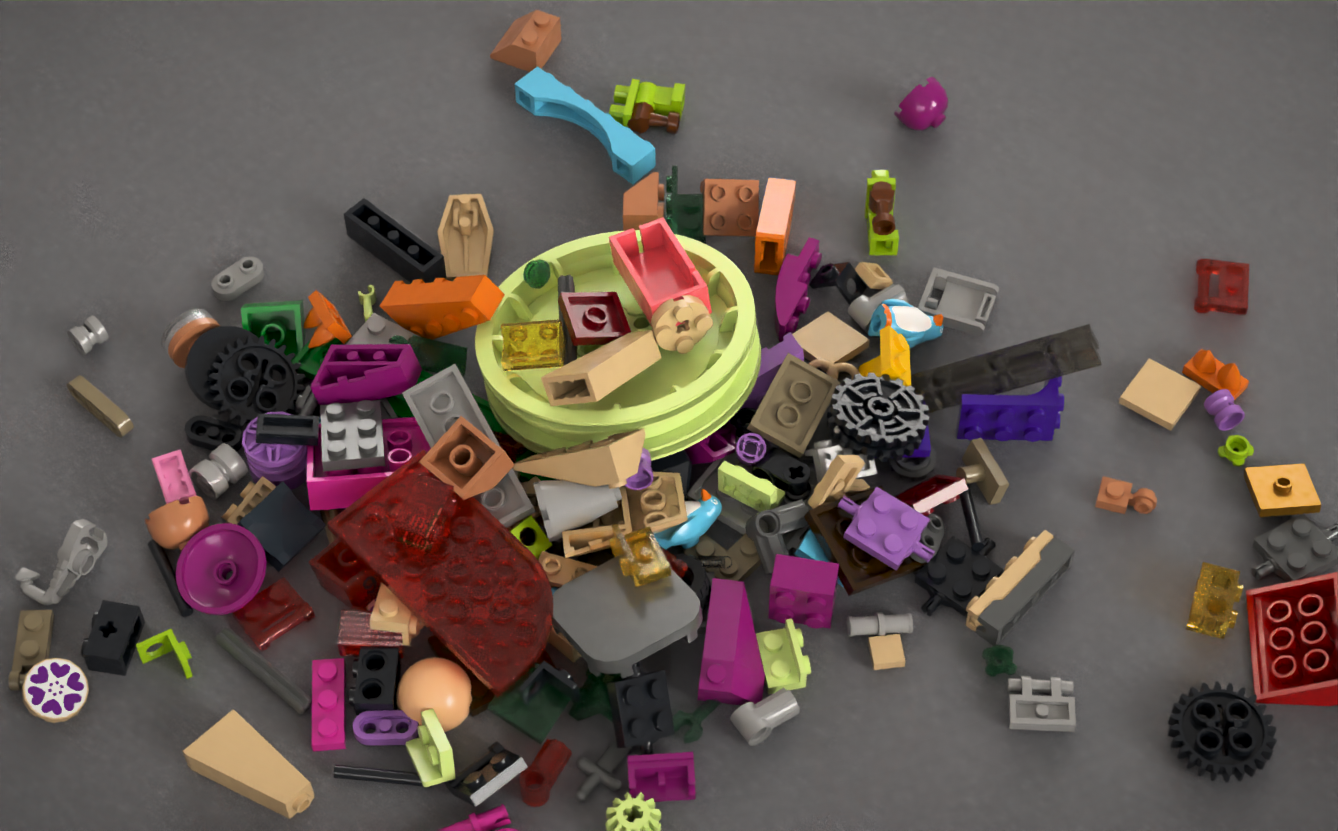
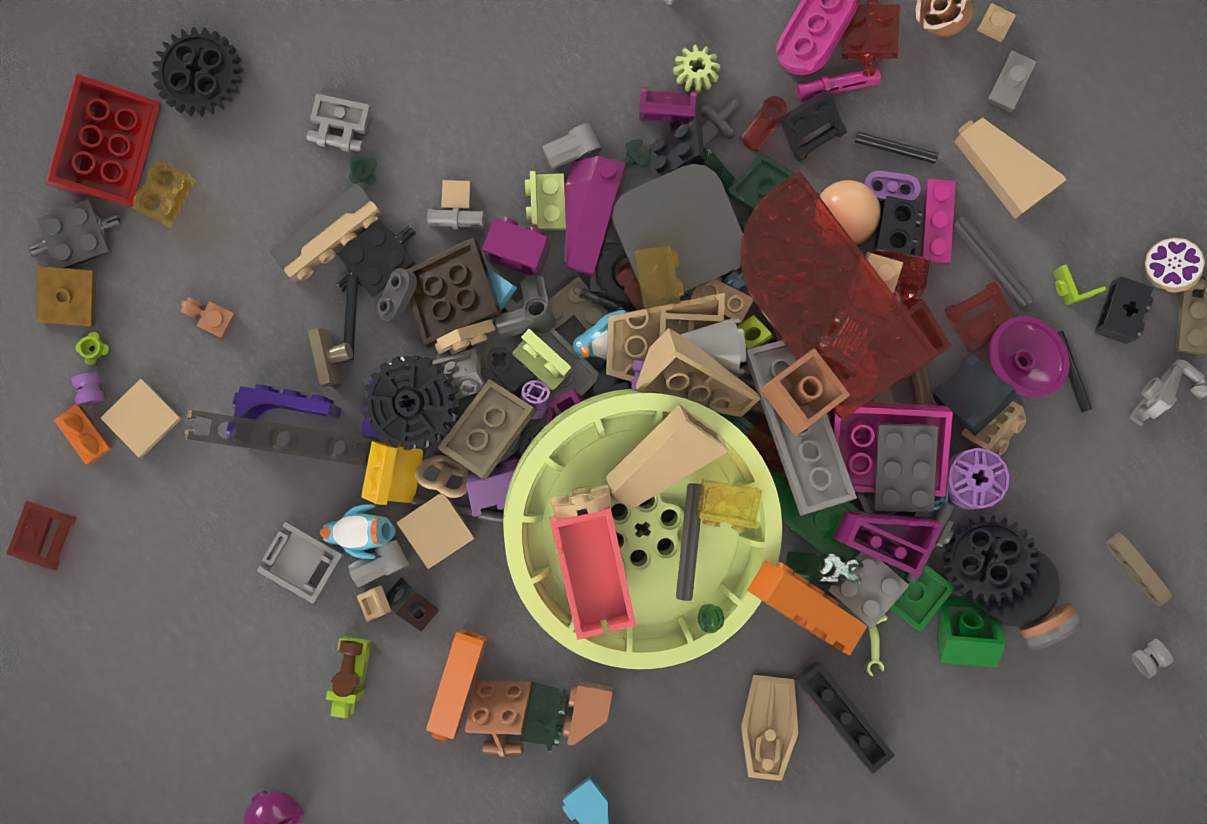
camera: 165 degrees left, 30 degrees up
(174, 477) = (1068, 473): bright pink plate -> none
(177, 523) = (1064, 414): nougat cylinder -> none
(215, 432) = (1029, 517): black plate -> none
(223, 468) = (1030, 468): light grey wheel -> none
(240, 278) = (1001, 710): light grey plate -> none
(287, 429) = (967, 477): black tile -> none
(327, 320) = (918, 633): orange tile -> none
(431, 752) = (857, 148): yellowish green bracket -> none
(558, 678) = (745, 186): black bracket -> none
(593, 317) = (663, 532): dark red plate -> none
(792, 287) = (462, 589): magenta slope -> none
(886, 528) = (431, 288): medium lavender plate -> none
(933, 492) = (384, 333): dark red plate -> none

